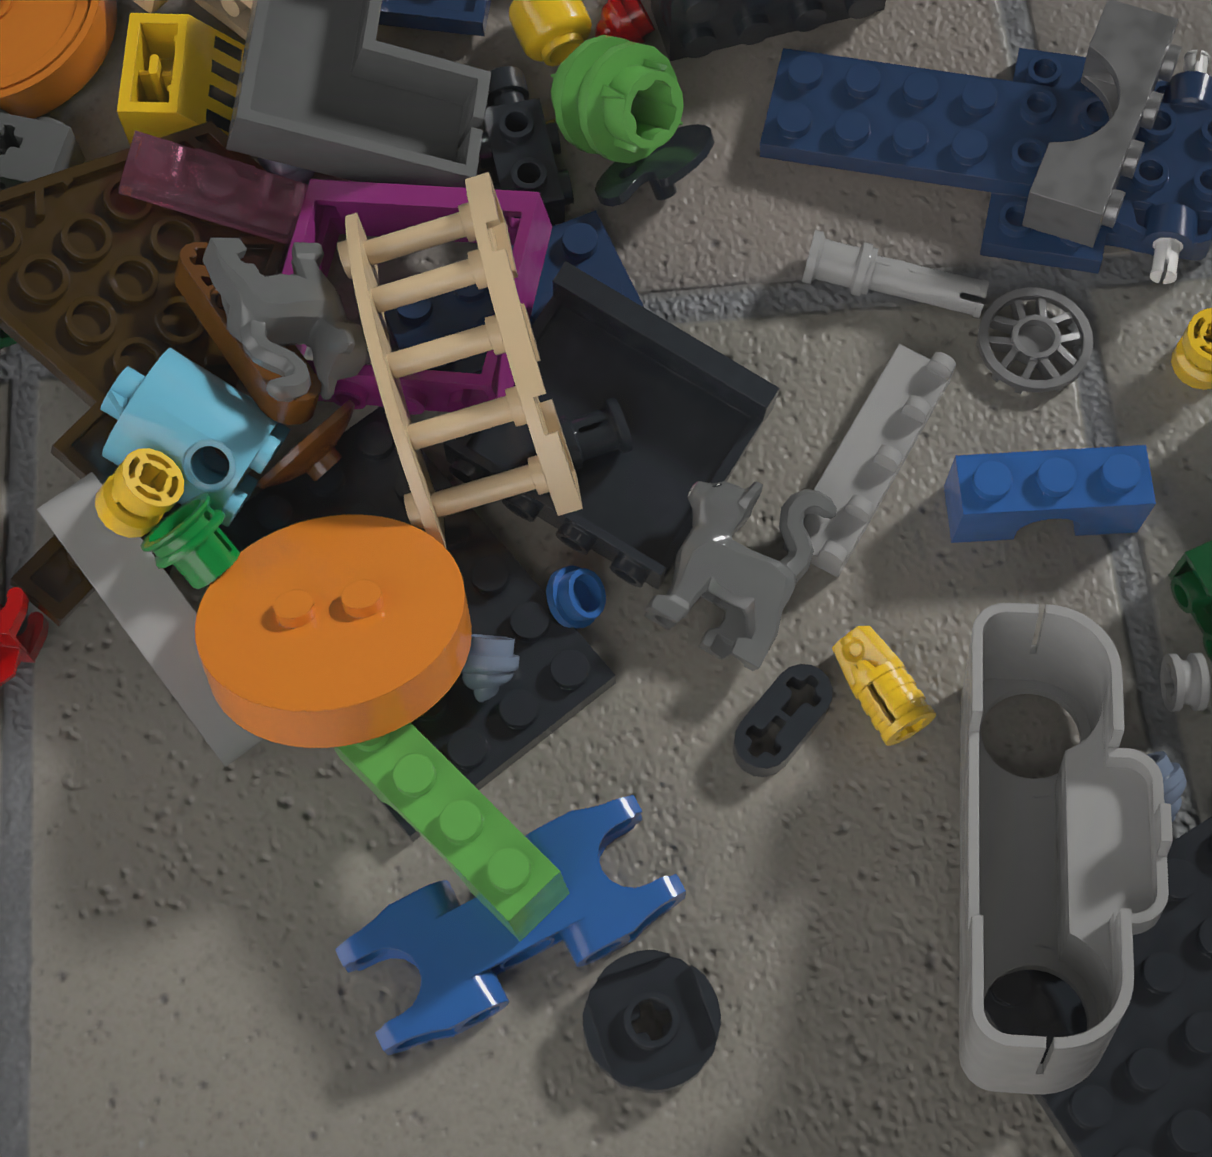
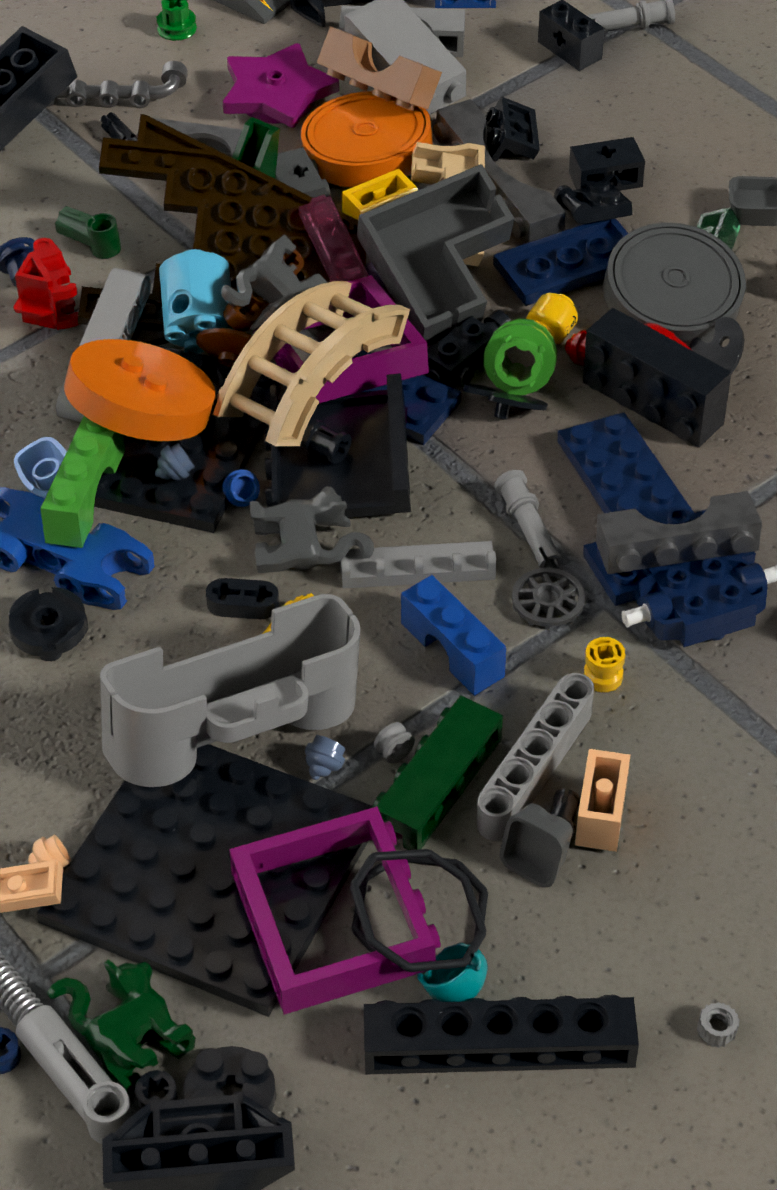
camera: 55 degrees right, 20 degrees down
(139, 493) = (146, 288): yellow wheel -> none
(193, 542) = (141, 321): green piece -> none
(355, 853) = (39, 464): none -> light blue piece

